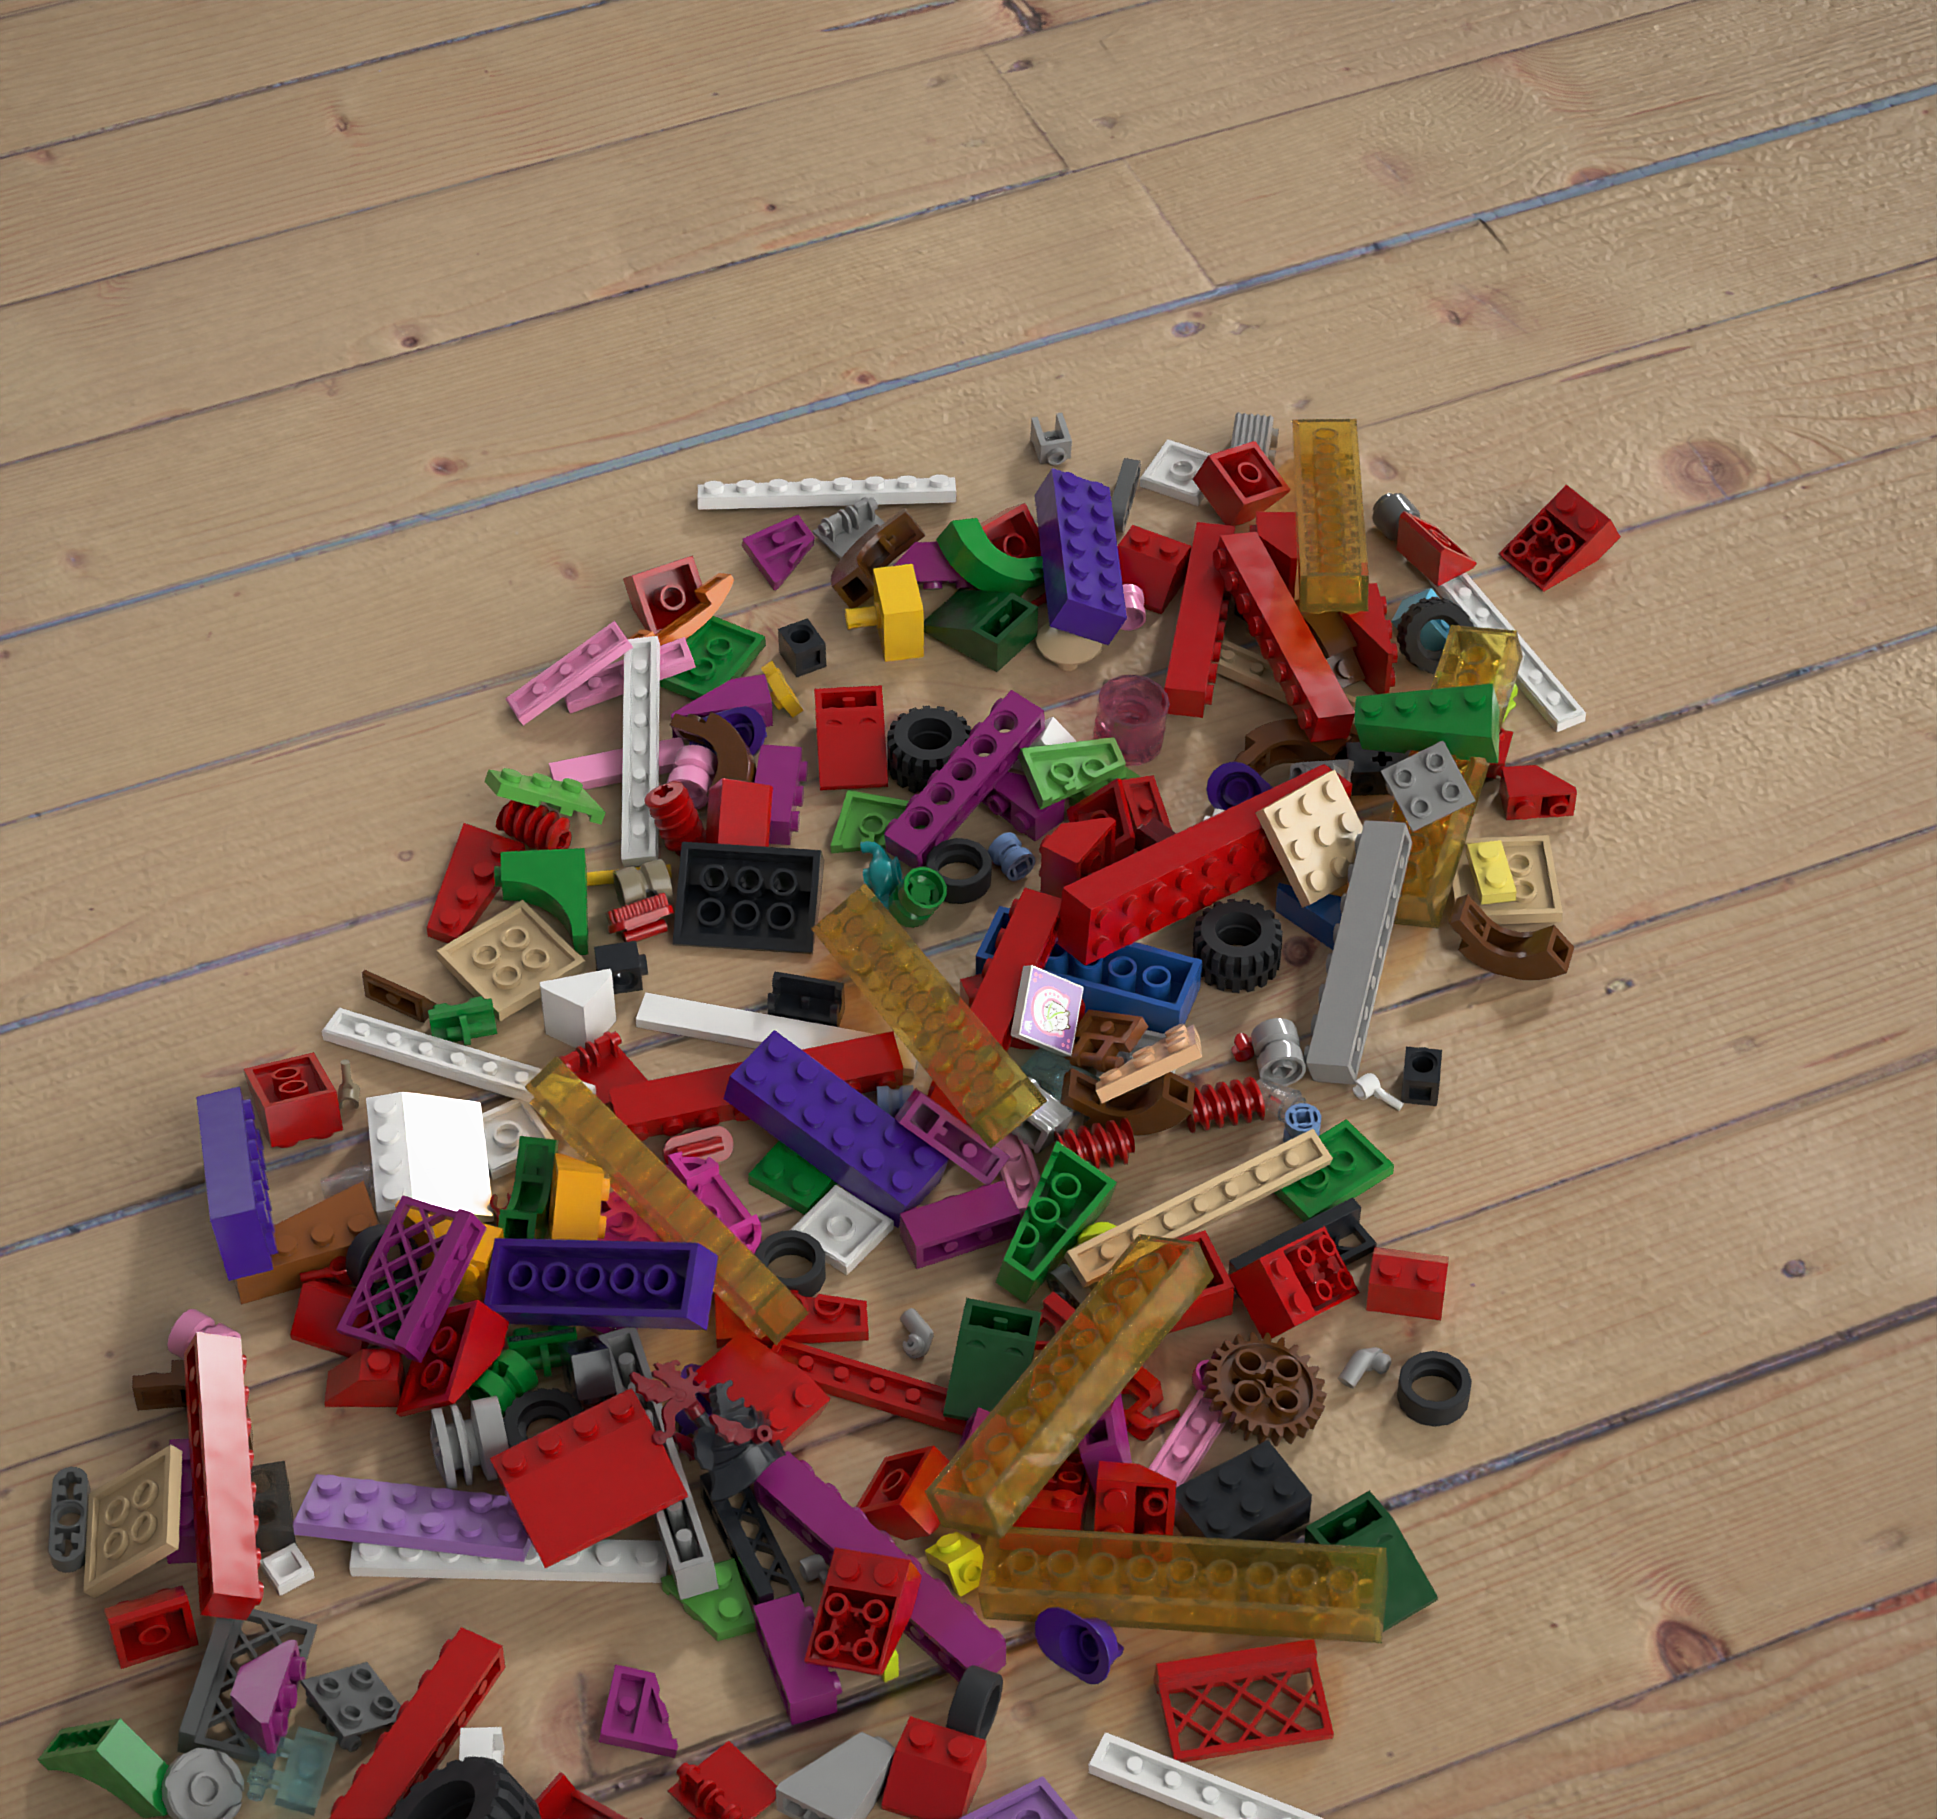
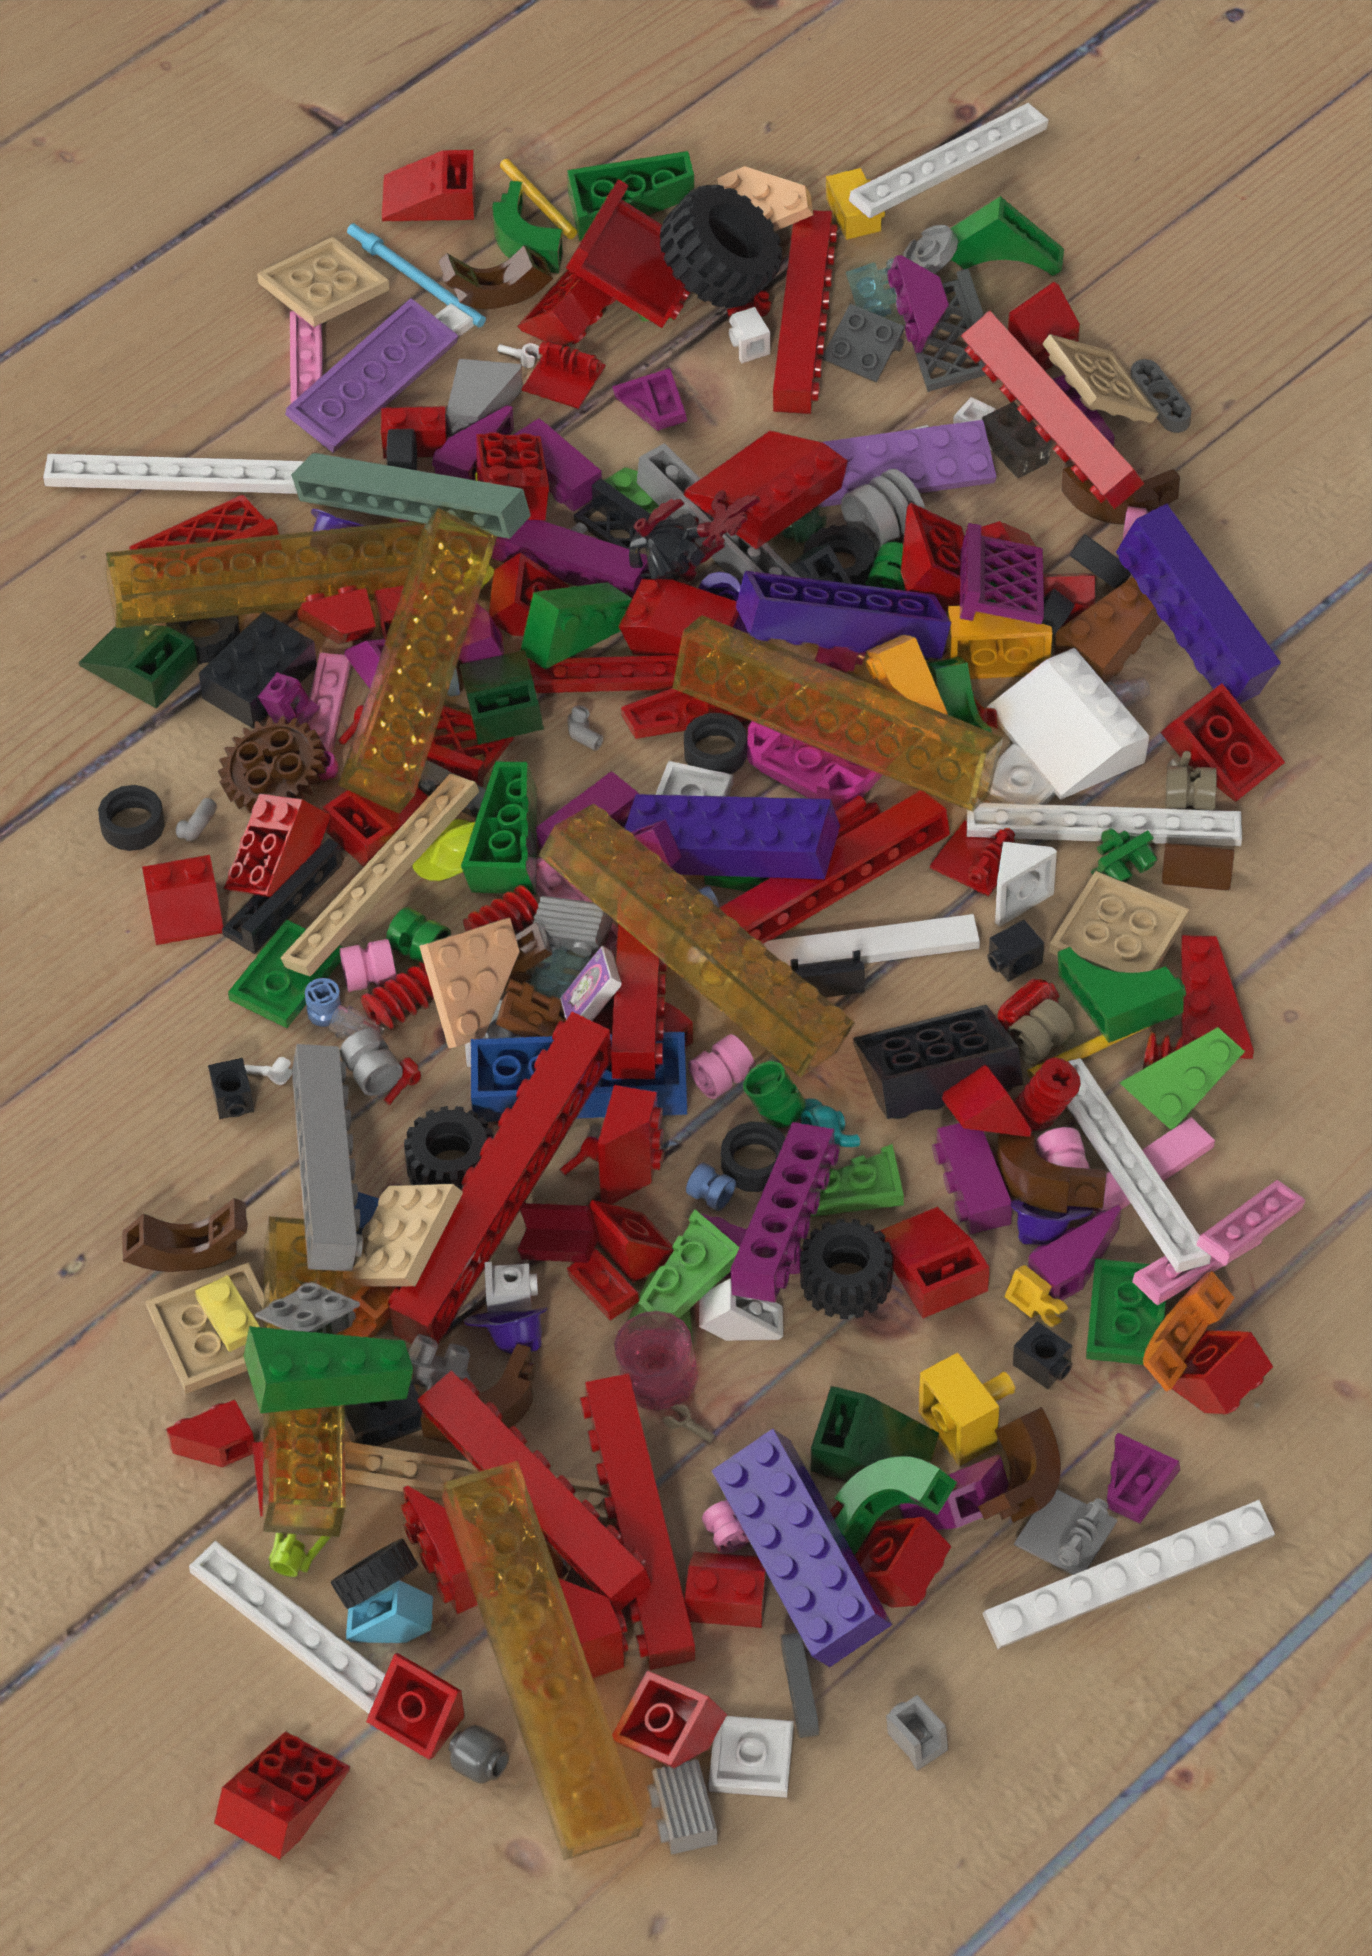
camera: 160 degrees right, 5 degrees up
(267, 1303) = (1100, 561): none -> black tyre
(366, 1057) = (1190, 788): none -> dark tan wheel
(869, 1424) = (571, 620): none -> green wedge
(881, 1709) = (458, 453): none -> magenta slope
(938, 948) = (726, 1064): none -> bright pink wheel
(993, 1612) = (409, 493): none -> sand green brick
(1183, 1155) = (411, 930): none -> green wheel
(1221, 1443) = (287, 698): none -> magenta window
(1258, 1141) = (367, 965): none -> bright pink wheel

